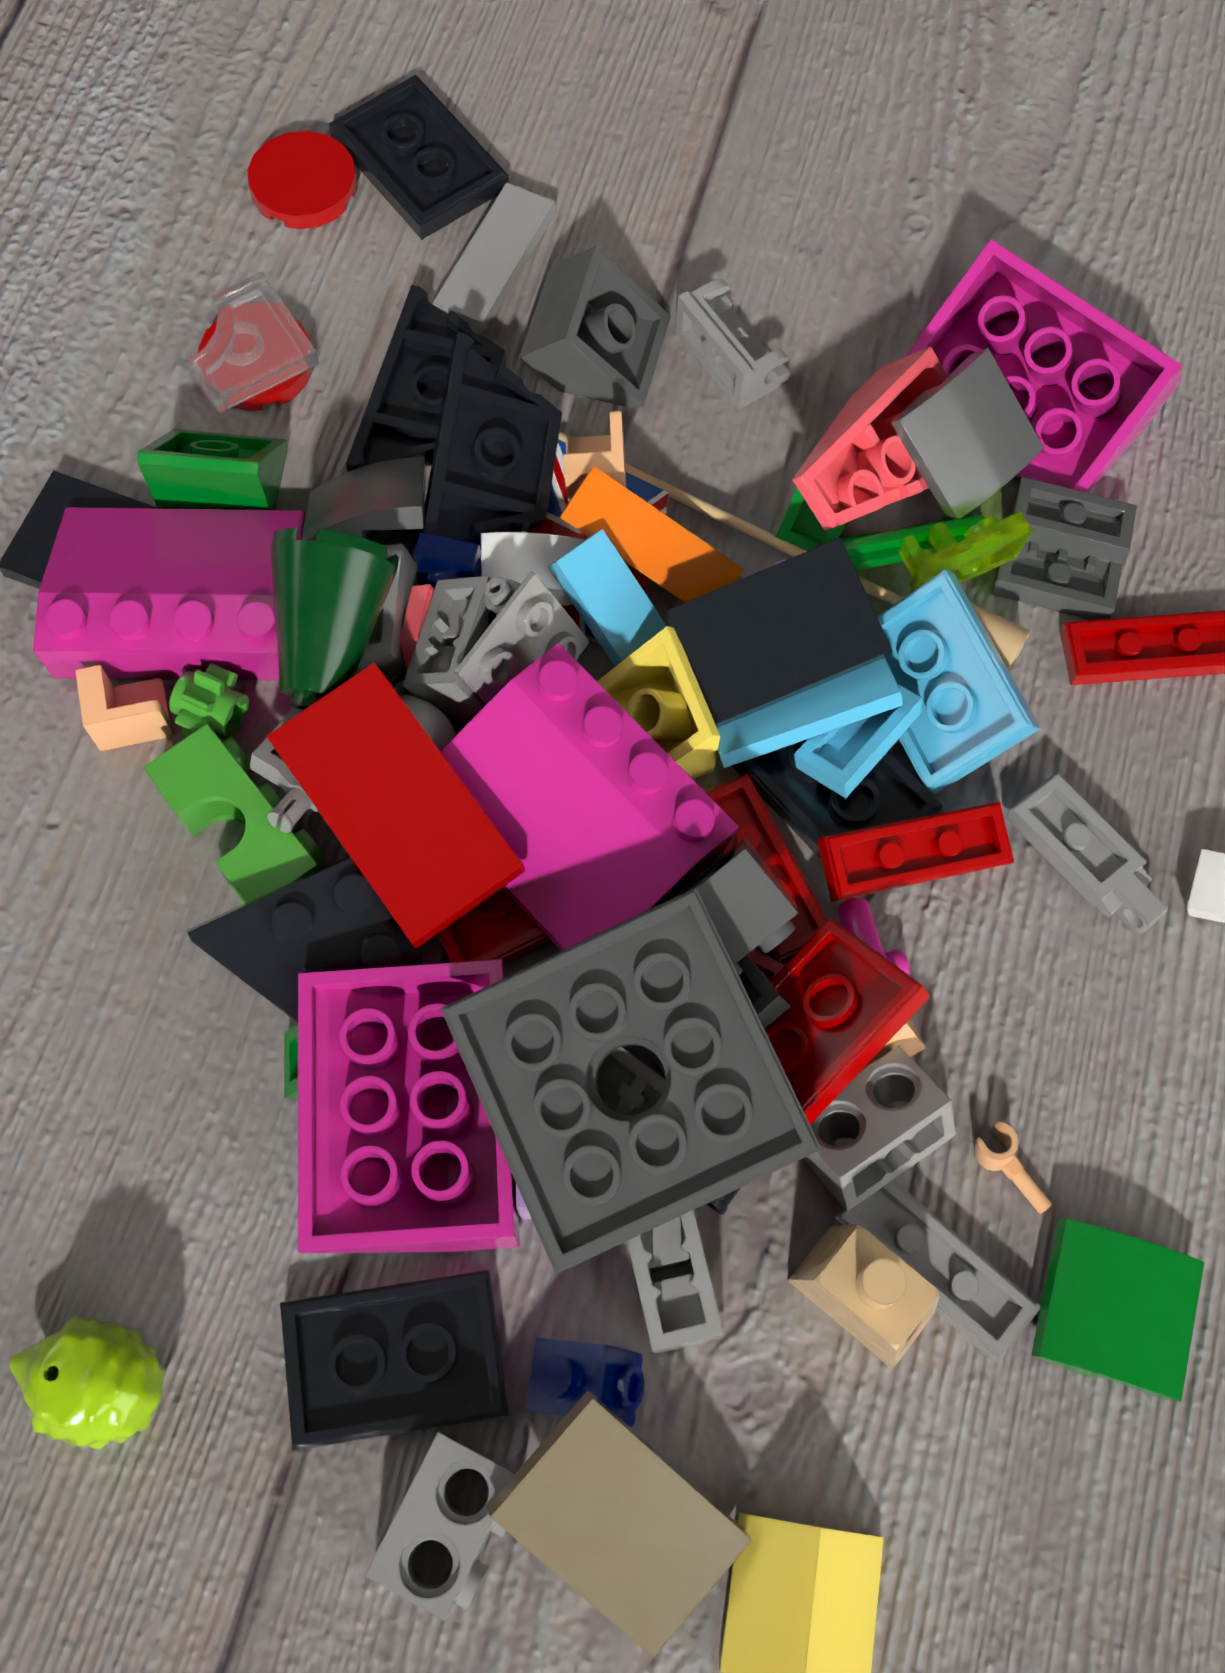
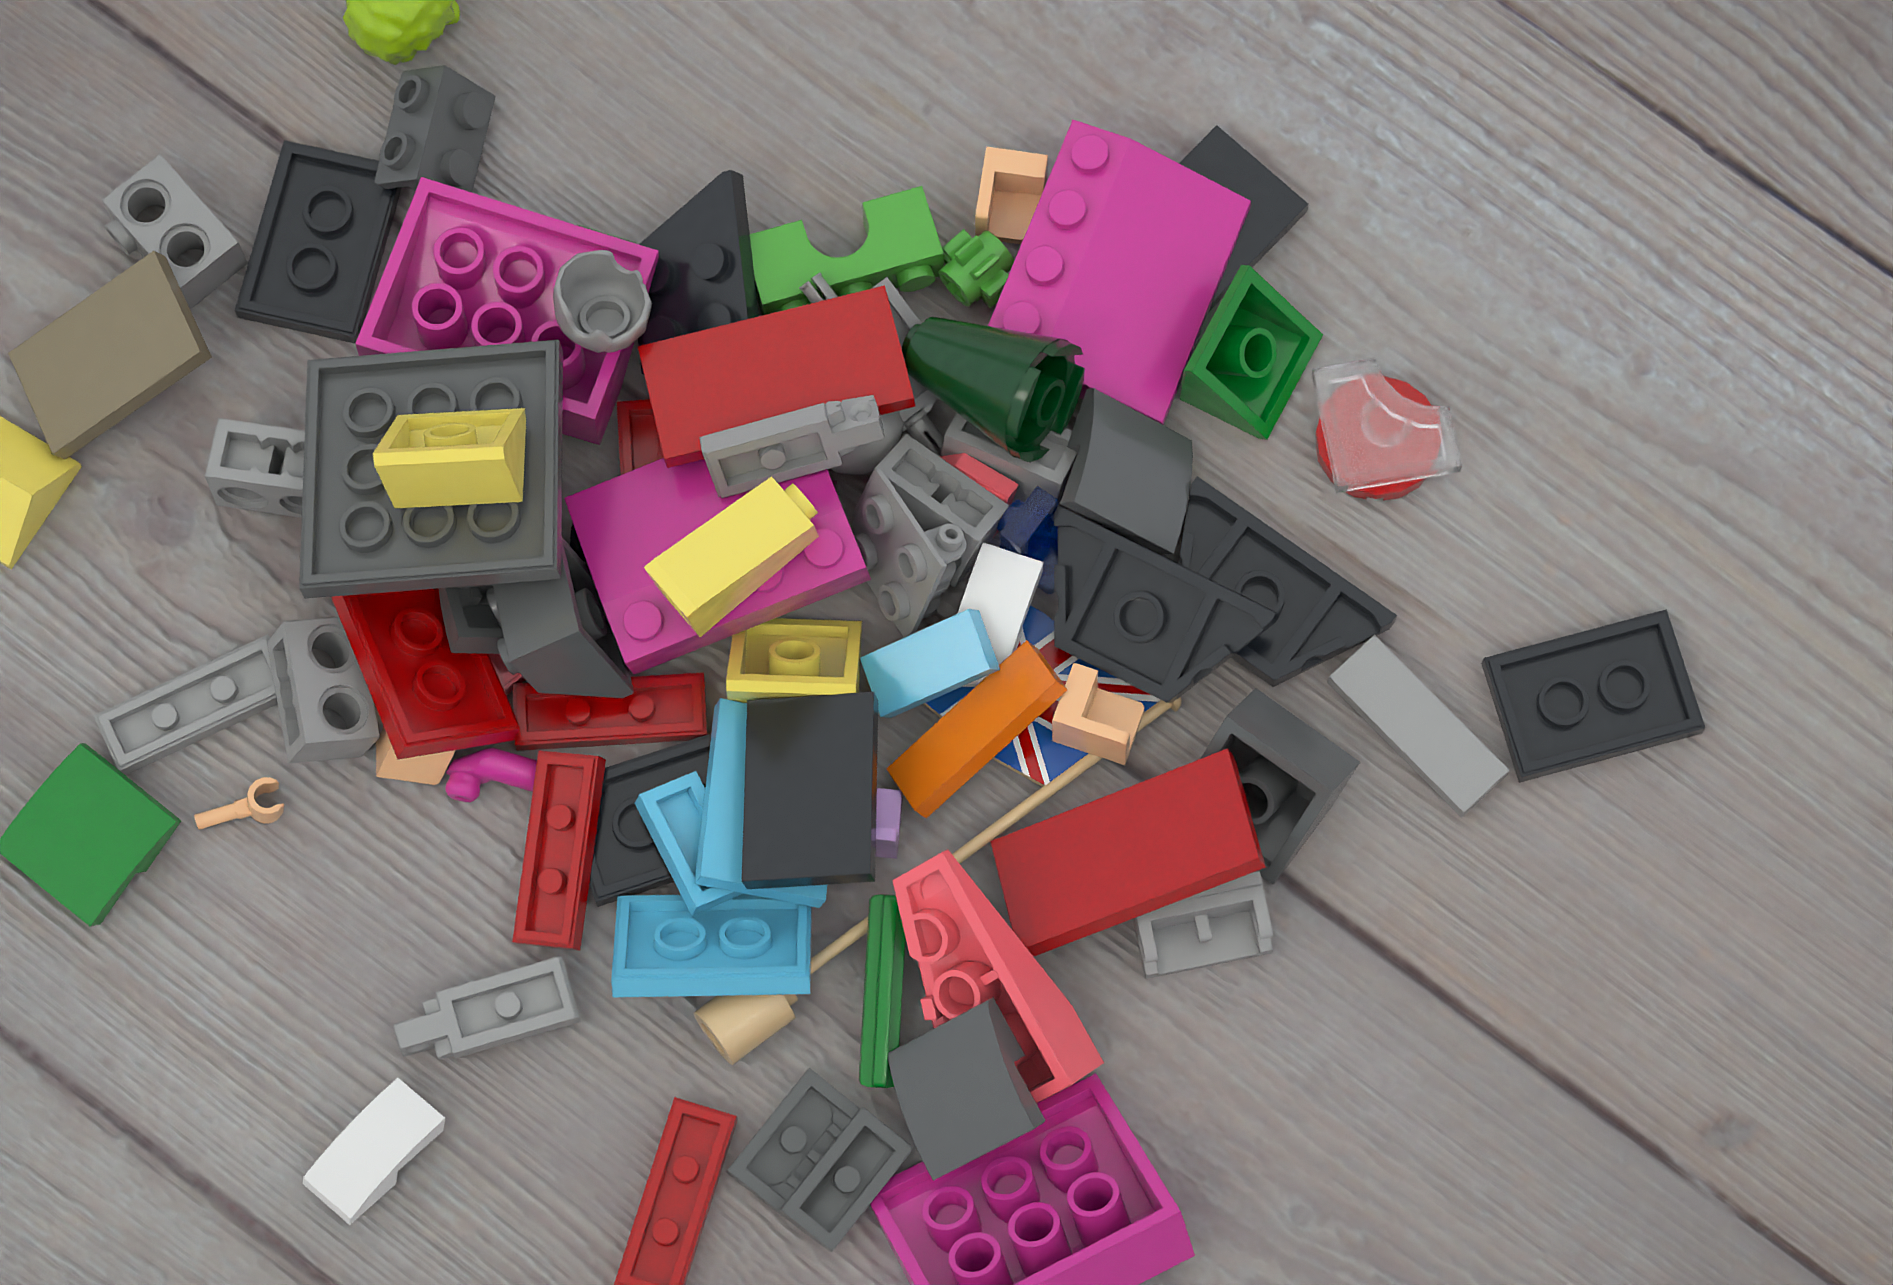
camera: 115 degrees right, 5 degrees up
(234, 1281) = (435, 130): none -> dark grey bracket
(302, 179) = (1602, 559): red tile -> none
(384, 984) = (600, 302): none -> light grey hair
(465, 744) = (790, 444): none -> light grey hinge
(568, 1369) = (231, 377): clear blue bracket -> none
(612, 1040) = (453, 458): none -> light yellow slope
(614, 726) = (734, 553): none -> light yellow slope
(709, 387) = (1127, 853): none -> red tile
(867, 1290) = (192, 621): tan torso -> none
(985, 548) = (837, 1055): clear neon green plate -> none

